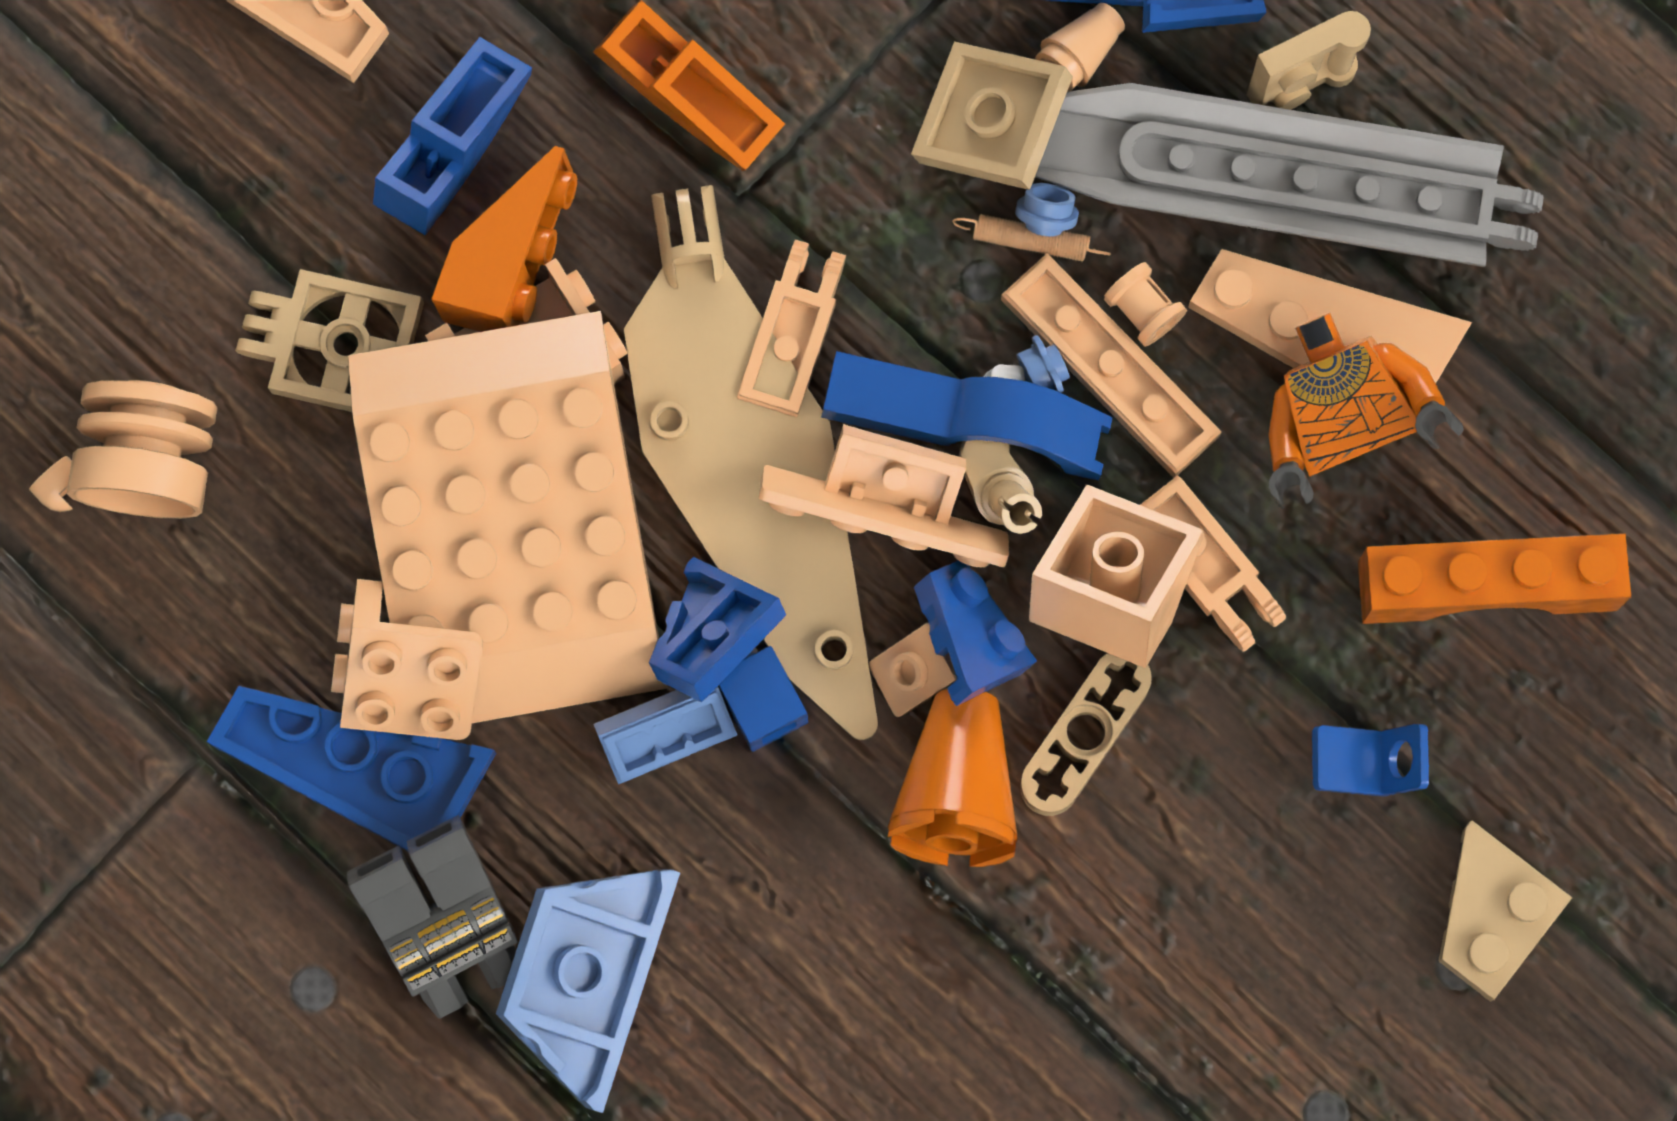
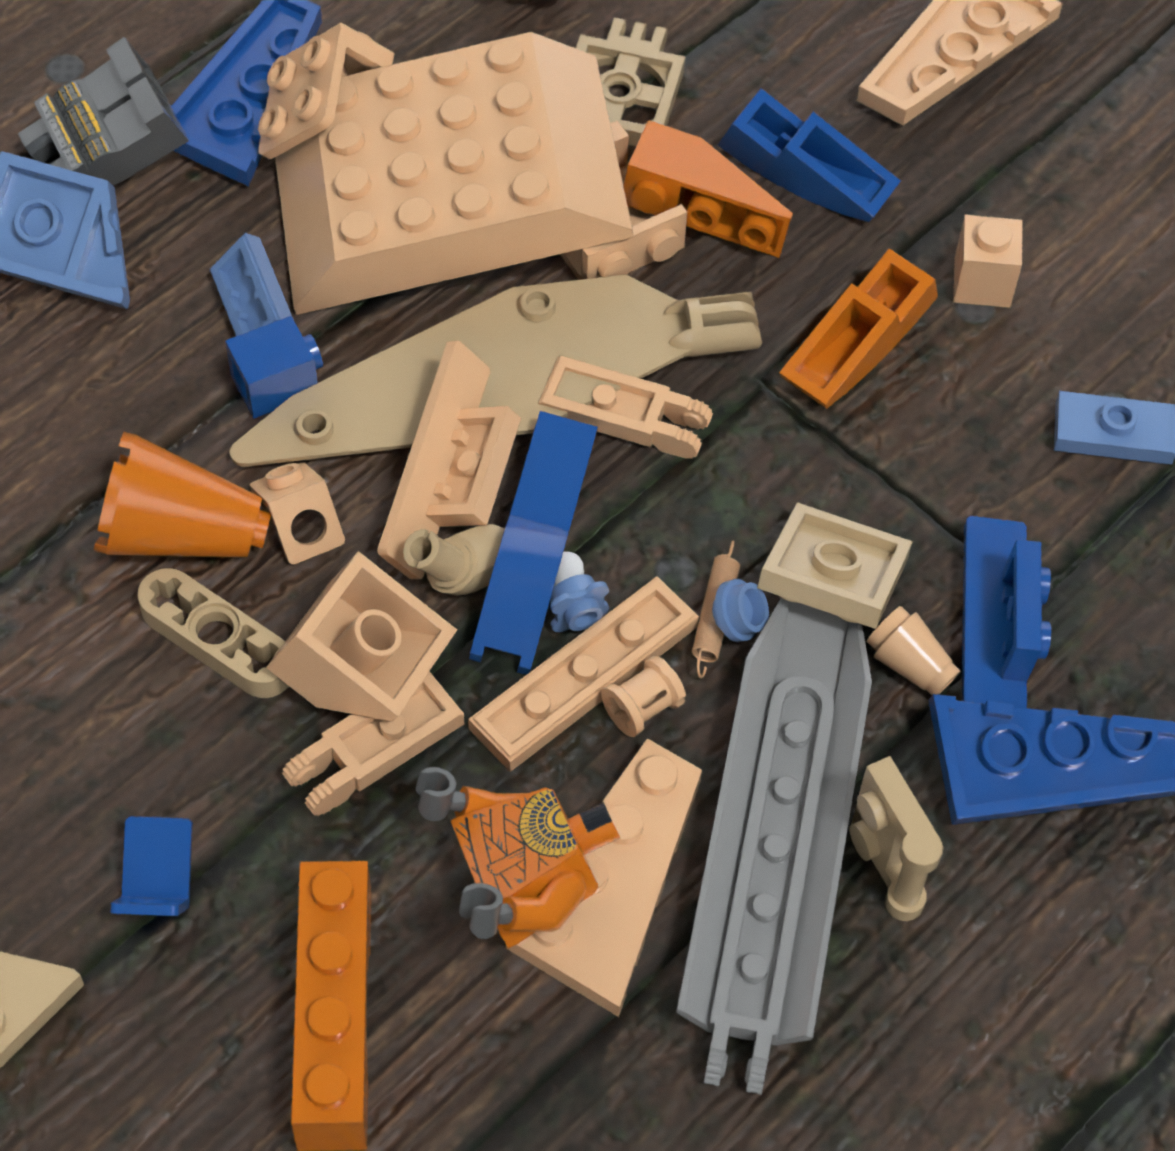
camera: 85 degrees right, 20 degrees down
(712, 629) = (330, 313): blue wing -> none
(972, 630) = (313, 525): blue wing -> none

